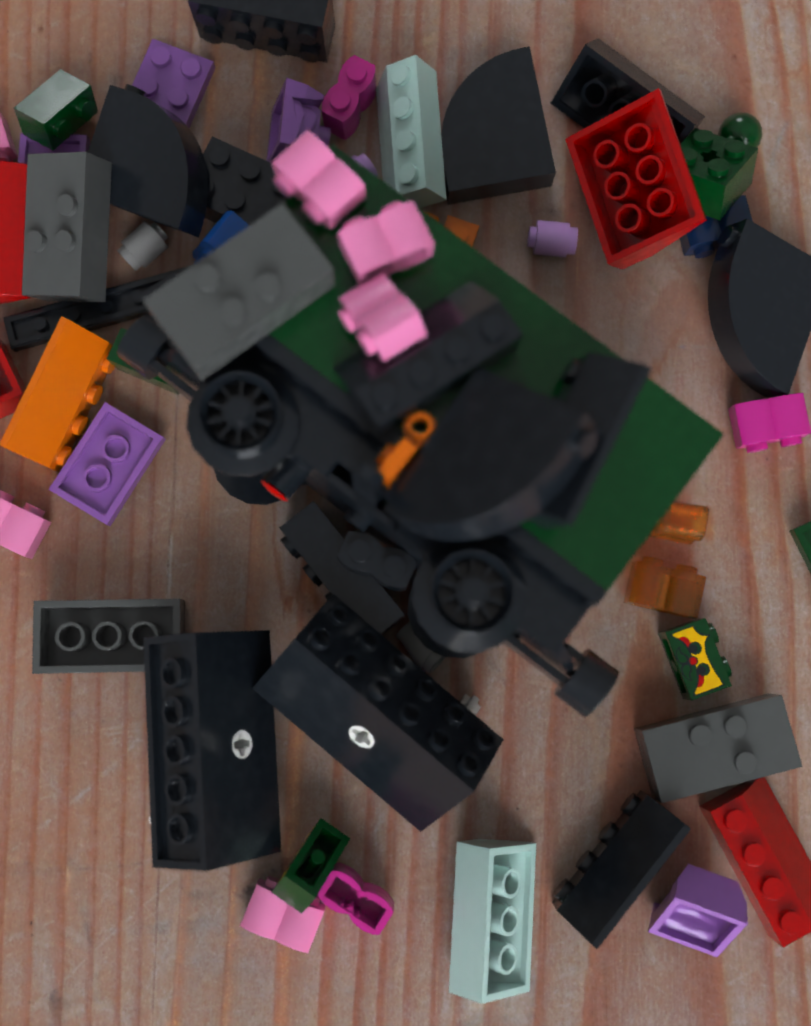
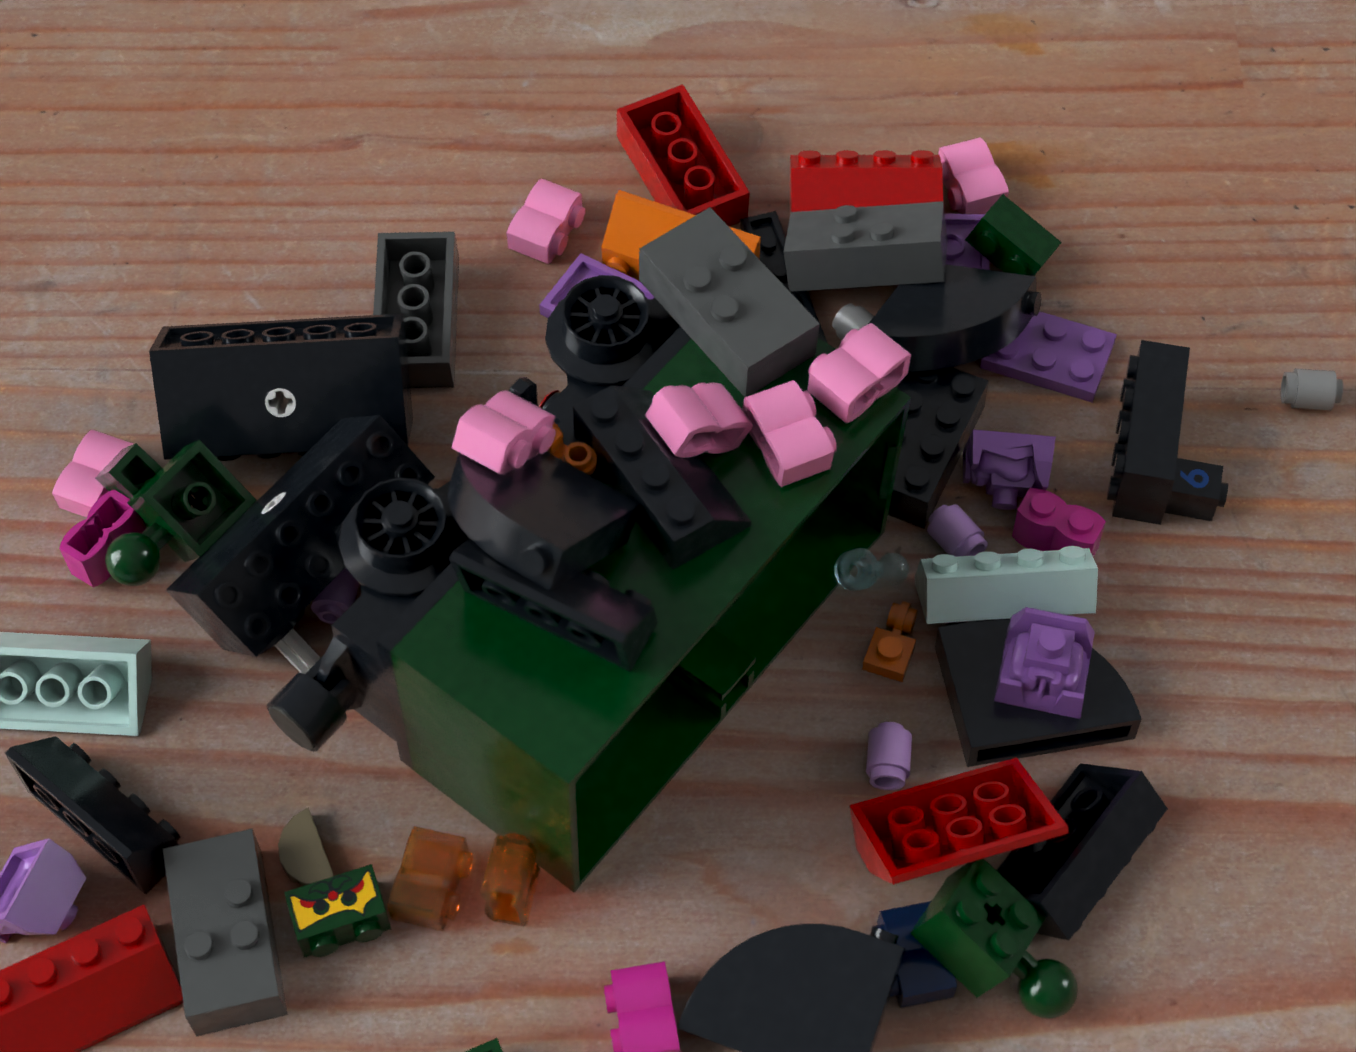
camera: 90 degrees right, 25 degrees down
(340, 823) = (172, 521): none -> dark green brick
(429, 481) = (504, 432): none -> bright pink brick
(490, 110) = (1045, 662): none -> medium lavender brick
(642, 691) = (302, 850): none -> dark tan tile

